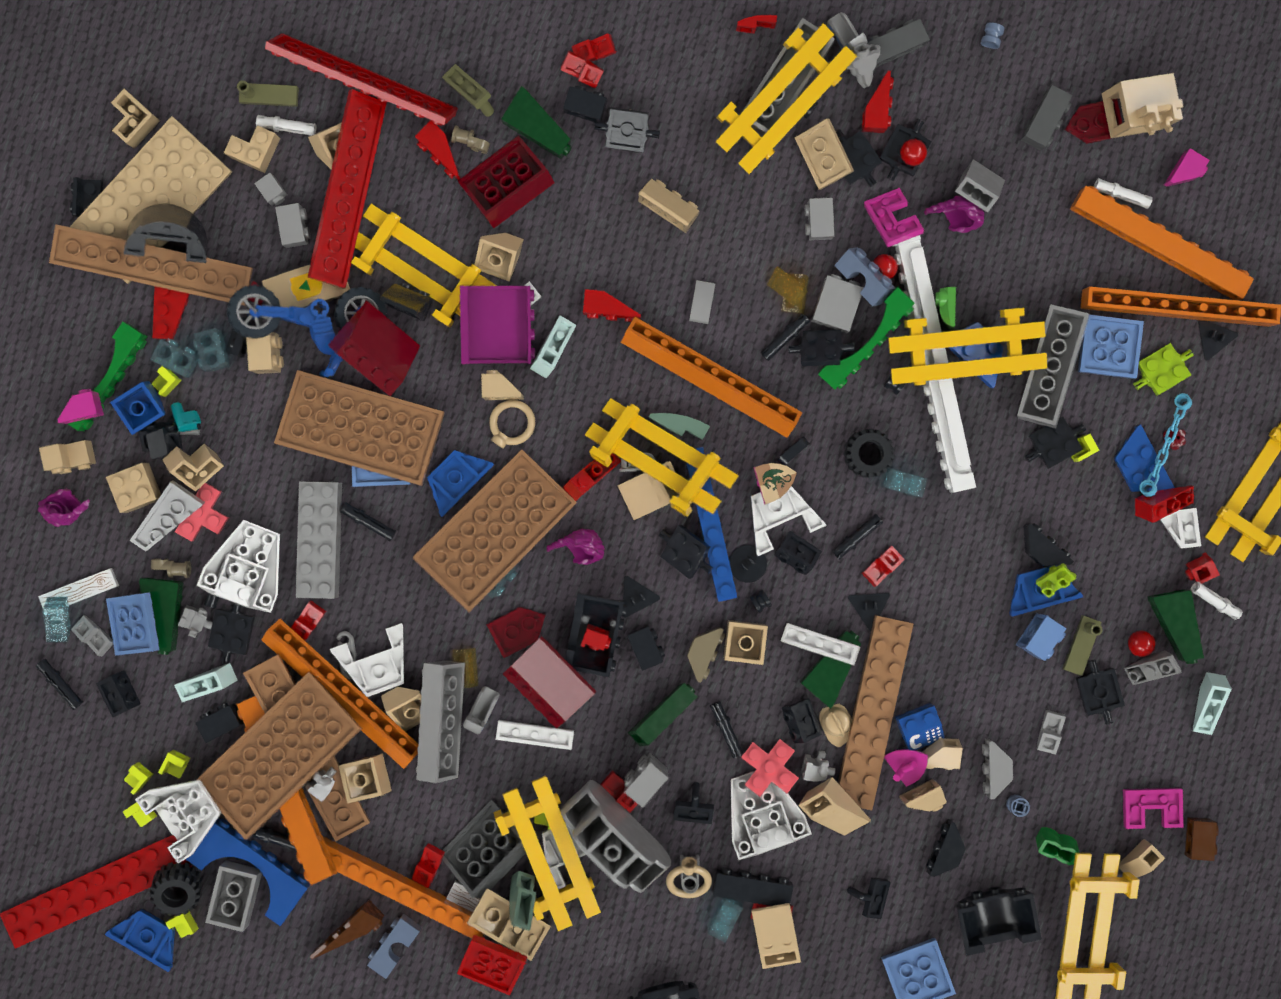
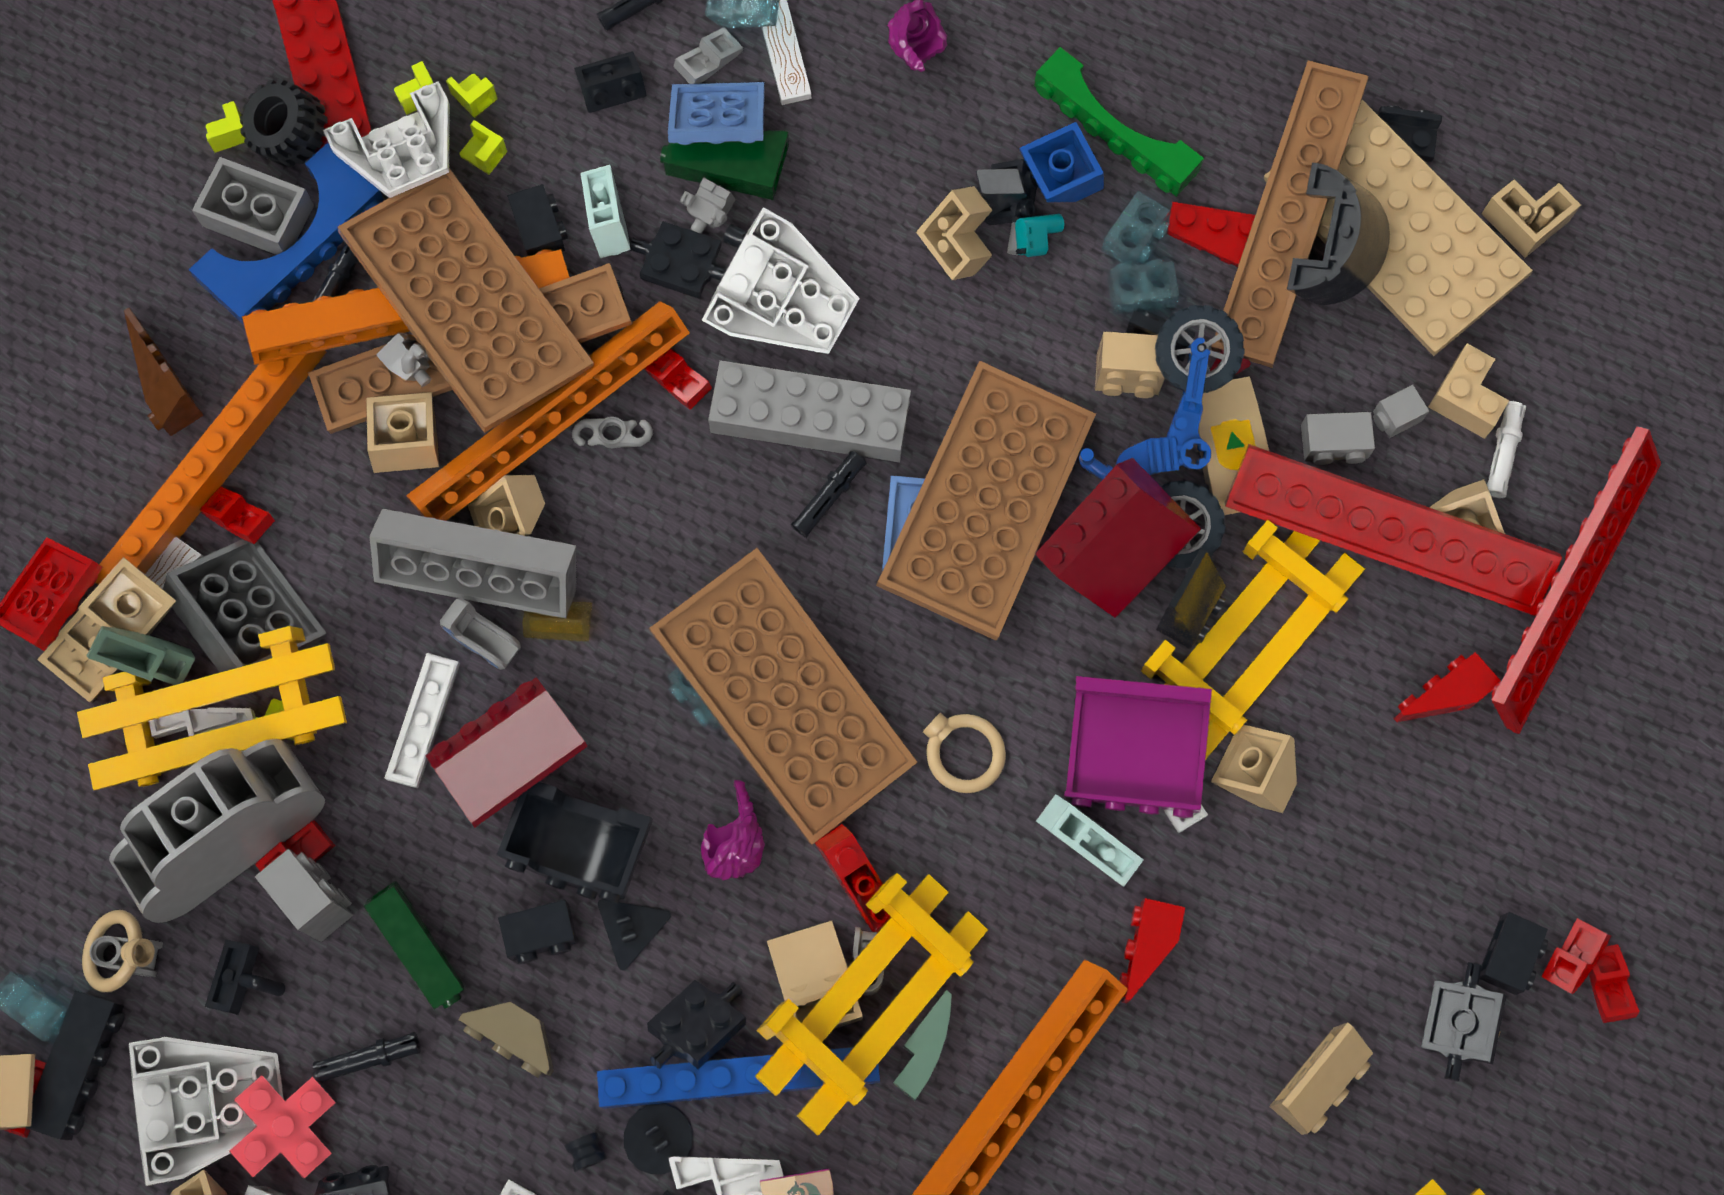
camera: 100 degrees right, 15 degrees down
(64, 457) = (996, 52): tan brick -> none
(81, 407) = (1072, 80): dark pink slope -> none
(134, 487) = (934, 144): tan brick -> none
(146, 937) = (216, 75): blue wing -> none
(165, 381) = (1099, 213): neon yellow panel -> none
(167, 513) = (885, 185): light grey wing -> none
(173, 569) = (797, 184): dark tan connector -> none
(204, 516) = (883, 235): coral plate -> none
(268, 94) = (1559, 427): olive piece -> none
(379, 670) = (577, 479): white wing -> none
(384, 959) = (135, 460): sand blue arch -> none
(455, 478) = (881, 645): blue wing -> none
(468, 138) = (1465, 743): dark tan connector -> none
(469, 89) = (1549, 755): olive piece -> none
(497, 387) = (1029, 734): tan slope -> none
(506, 181) = (1385, 797): dark red slope -> none
(516, 630) = (607, 712): dark red tile -> none
(535, 124) = (1483, 860): dark green slope -> none
(596, 638) = (569, 845): red brick -> none
(702, 302) = (1141, 1118): light grey slope -> none
(745, 642) = (516, 1112): tan brick -> none

